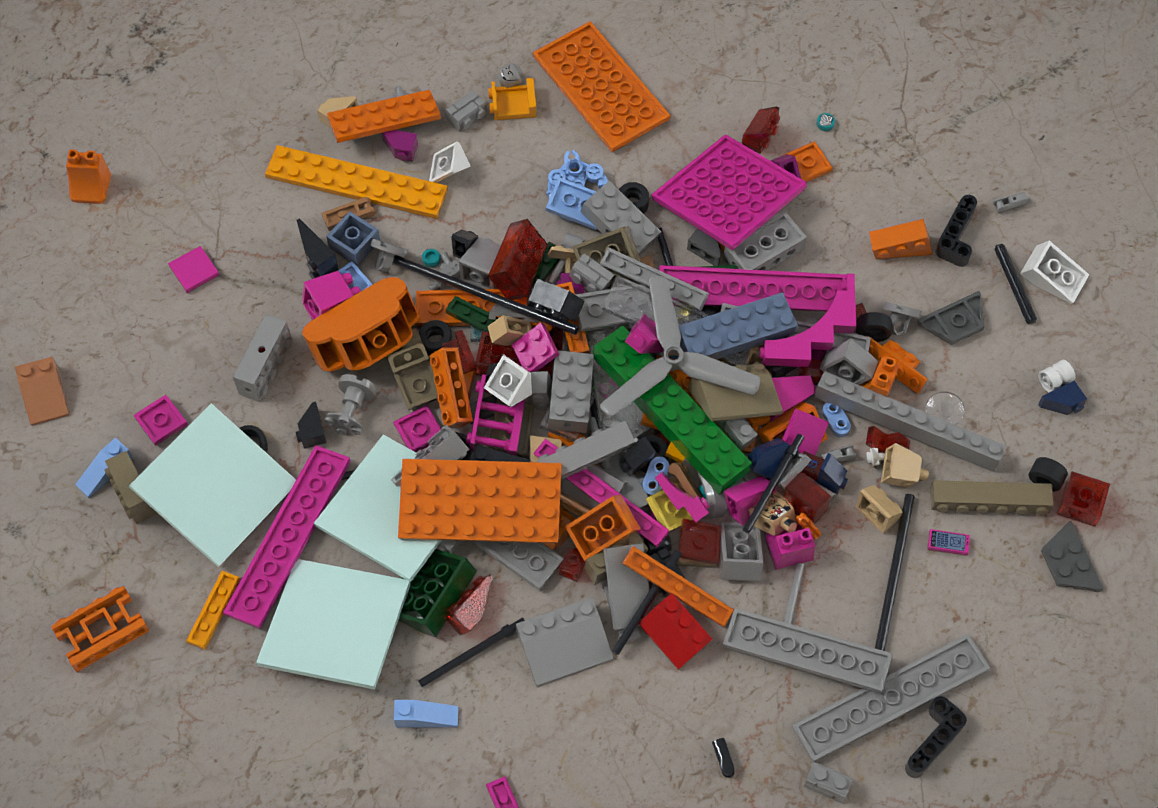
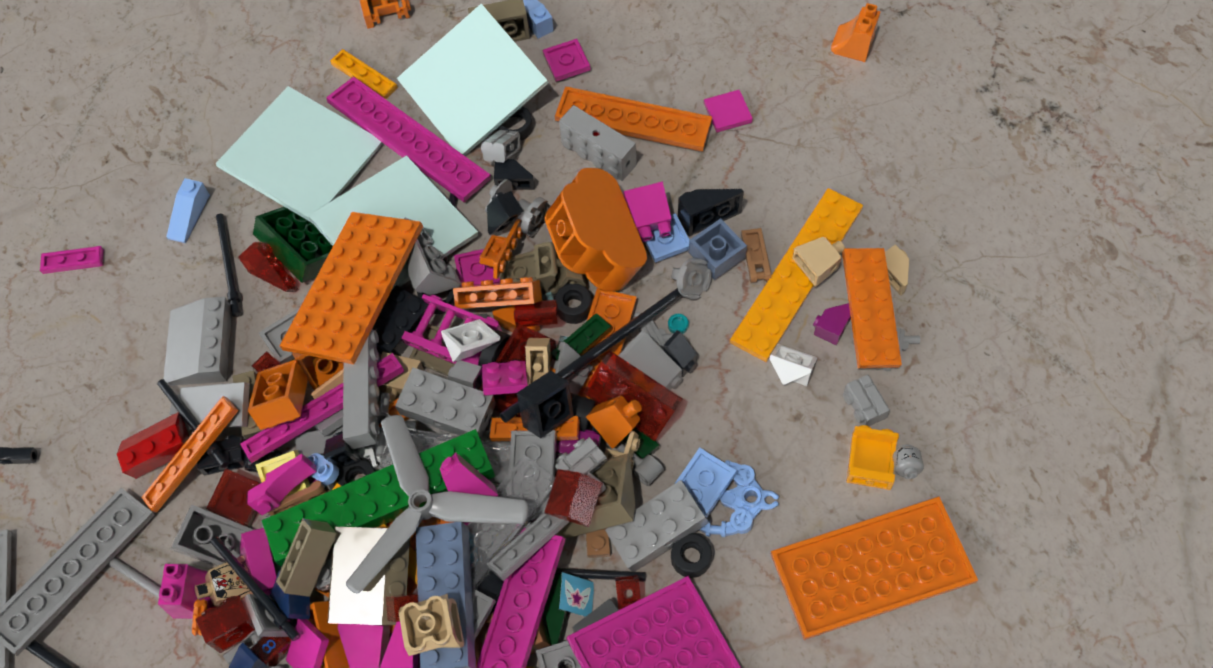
camera: 110 degrees right, 0 degrees up
(220, 343) = (640, 118): none -> orange plate
(285, 438) = (501, 146): none -> light grey brick
(347, 159) = (818, 258): none -> tan torso
(364, 409) = (502, 212): none -> black slope
(402, 403) = (499, 249): none -> orange bracket
(544, 262) = (615, 419): none -> orange torso
(628, 262) = (573, 497): none -> clear red slope
(676, 232) = (625, 583): none -> clear red brick
(693, 263) = (576, 595): none -> medium azure sticker
(743, 432) = (306, 557): none -> dark tan brick
(754, 355) = (394, 603): none -> clear red brick
(768, 311) = (431, 625): none -> tan piece

